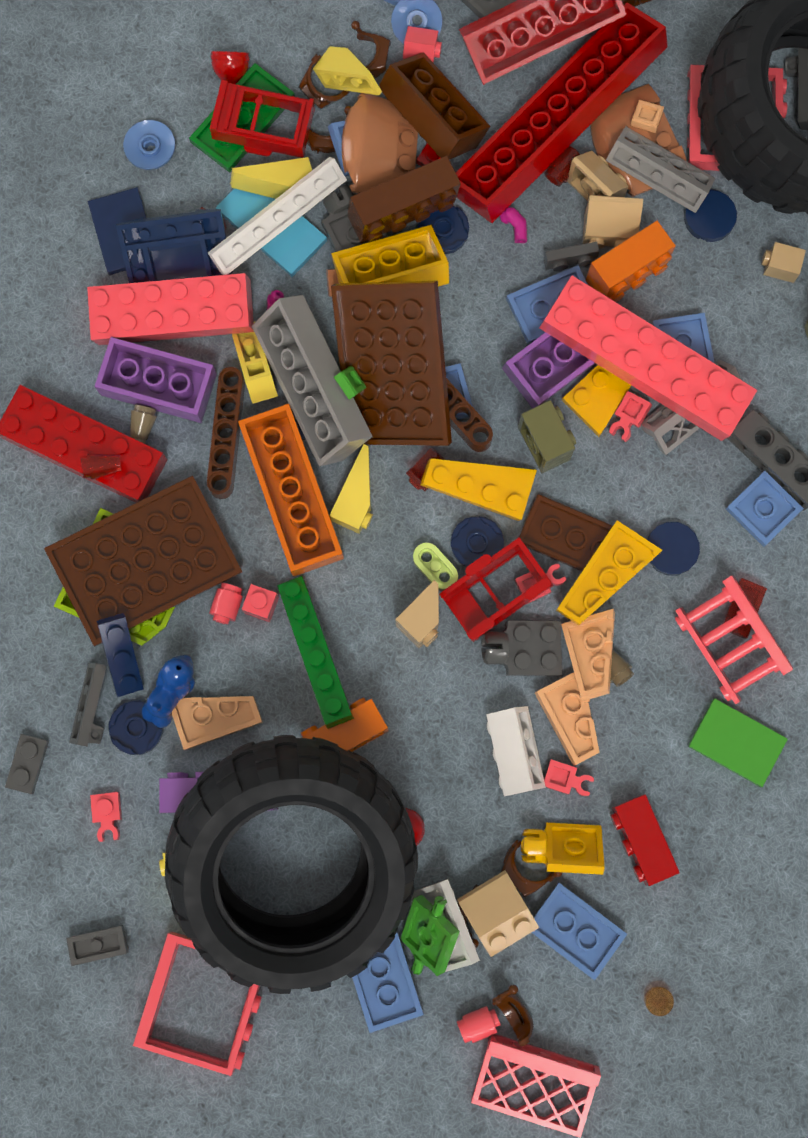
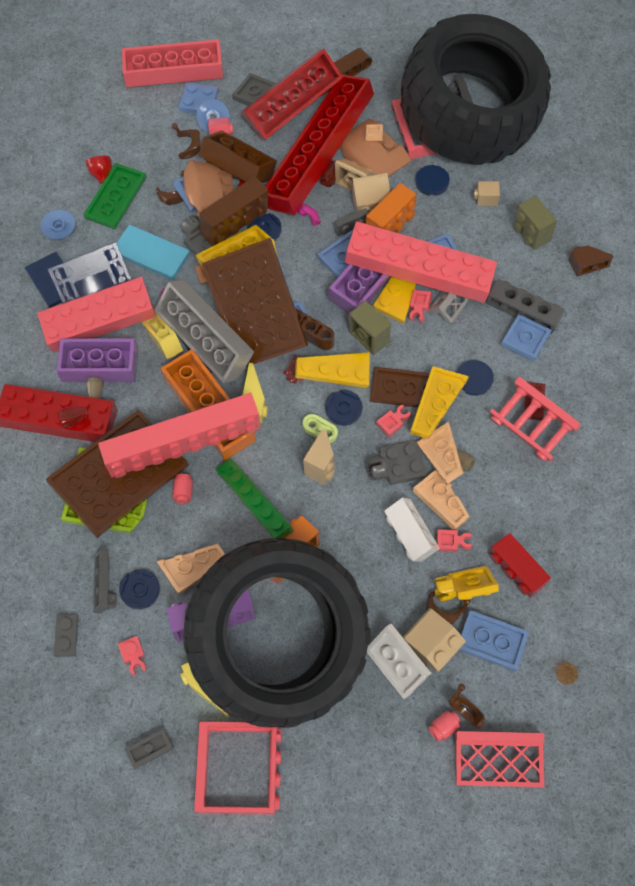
camera: 15 degrees left, 15 degrees down
(120, 655) = (116, 538): dark blue plate -> none
(172, 685) = (158, 549): blue animal -> none
(224, 420) = (153, 374): reddish brown beam -> none
(227, 113) = (131, 203): red piece -> none
(236, 539) = (180, 435): none -> coral brick
(260, 603) = (206, 481): coral brick -> none
(270, 178) = (147, 223): light yellow slope -> none
(277, 216) = (153, 240): white plate -> none
(309, 90) = (162, 174): reddish brown helmet -> none
(343, 71) = (176, 151): light yellow slope -> none
(350, 382) = (230, 322): bright green tile -> none
(387, 989) = (368, 716): medium blue plate -> none
(429, 935) = (390, 668): bright green plate -> none
(468, 610) = (350, 450): red piece -> none
(660, 170) = (392, 159): light grey fence -> none
(737, 742) = (560, 486): bright green tile -> none

